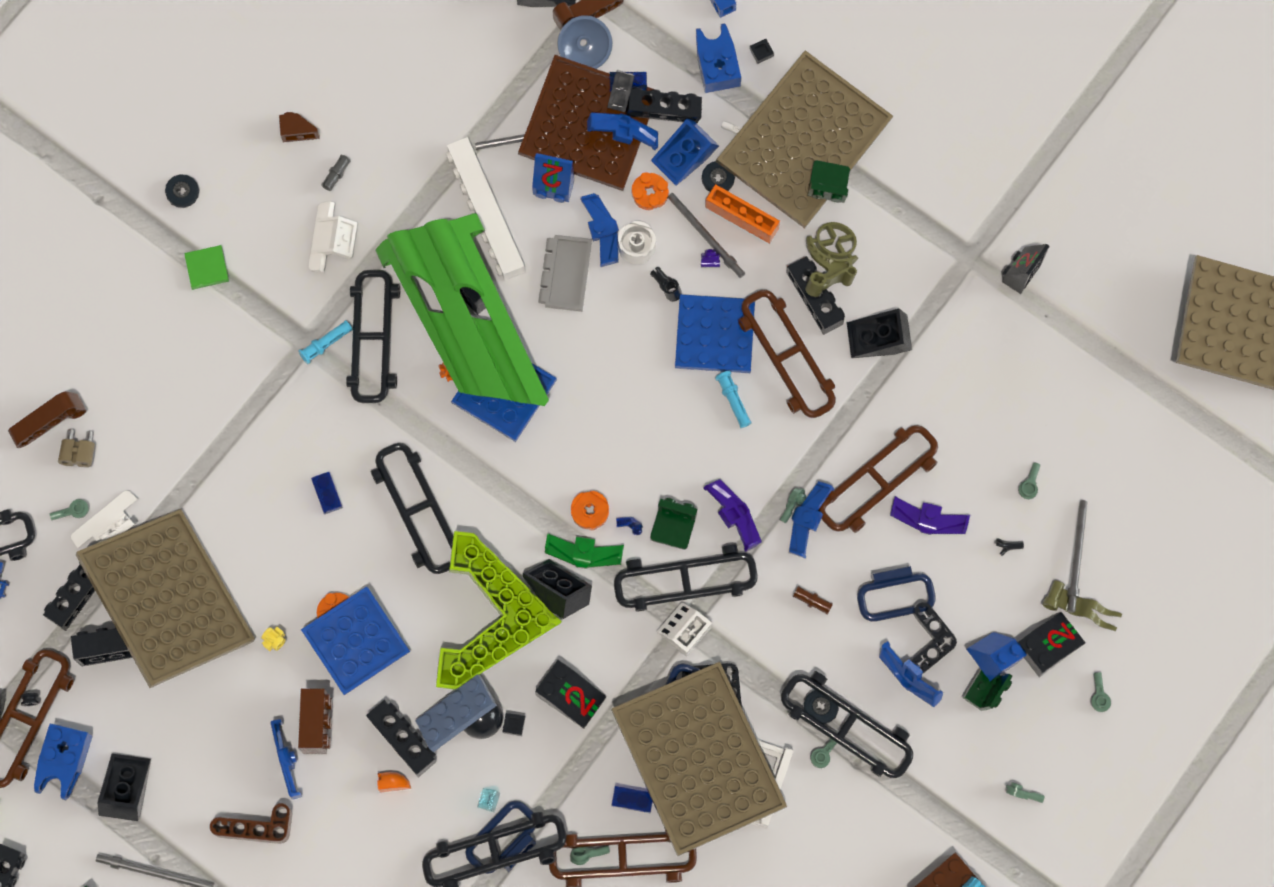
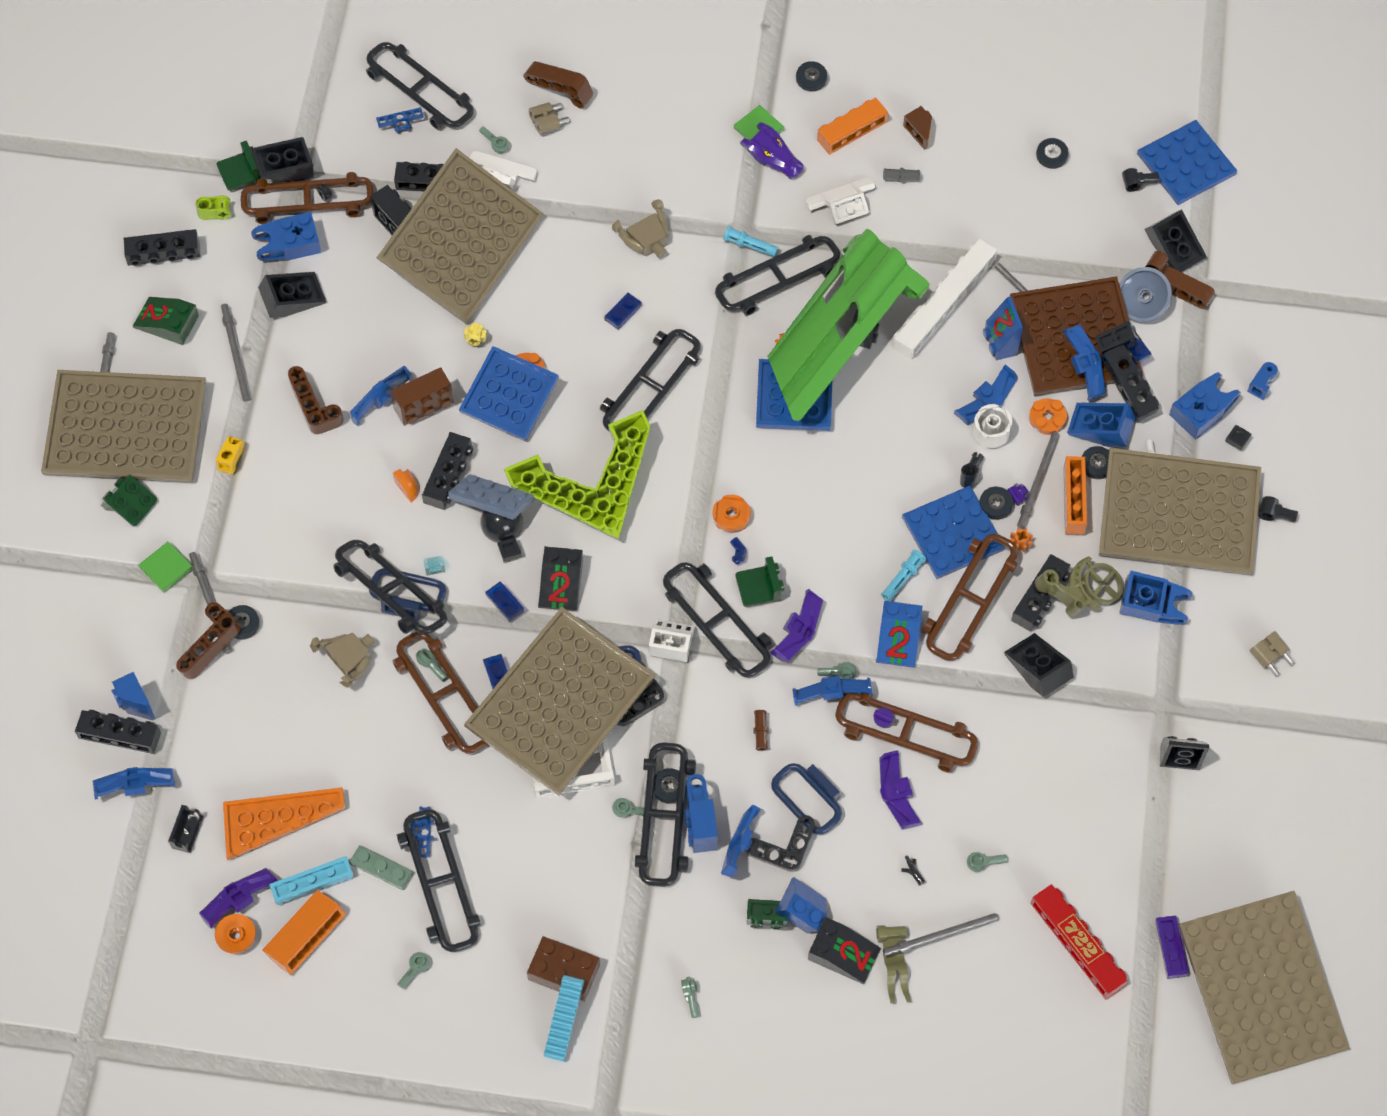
camera: 60 degrees right, 10 degrees down
(242, 269) = (772, 151): none -> dark purple animal
(258, 185) = (852, 125): none -> orange brick
(262, 427) = (648, 234): none -> dark tan torso
(392, 25) = (1060, 153): none -> black bush
(558, 588) = (645, 520): black slope -> none
(563, 755) = (504, 601): none -> clear blue plate
(567, 273) = (930, 391): light grey hinge -> none
(583, 553) = (691, 528): green plate -> none
(702, 275) = (999, 495): none -> black bush
(758, 278) = (1026, 539): none -> orange gear
(787, 433) = (899, 634): none -> blue slope
(829, 181) = (1151, 548): dark green bracket -> none
(844, 65) = (1271, 510): none -> black pin
(857, 490) = (883, 717): none -> dark purple plate
(869, 695) = (700, 817): none -> blue brick
(877, 205) = (1158, 599): none -> blue brick
(969, 145) = (1270, 650): none -> dark tan piece
(1100, 702) = (816, 1022): sand green plate -> none
(1142, 449) = (1079, 942): none -> red brick
(1184, 378) = (1171, 947): none -> dark purple plate

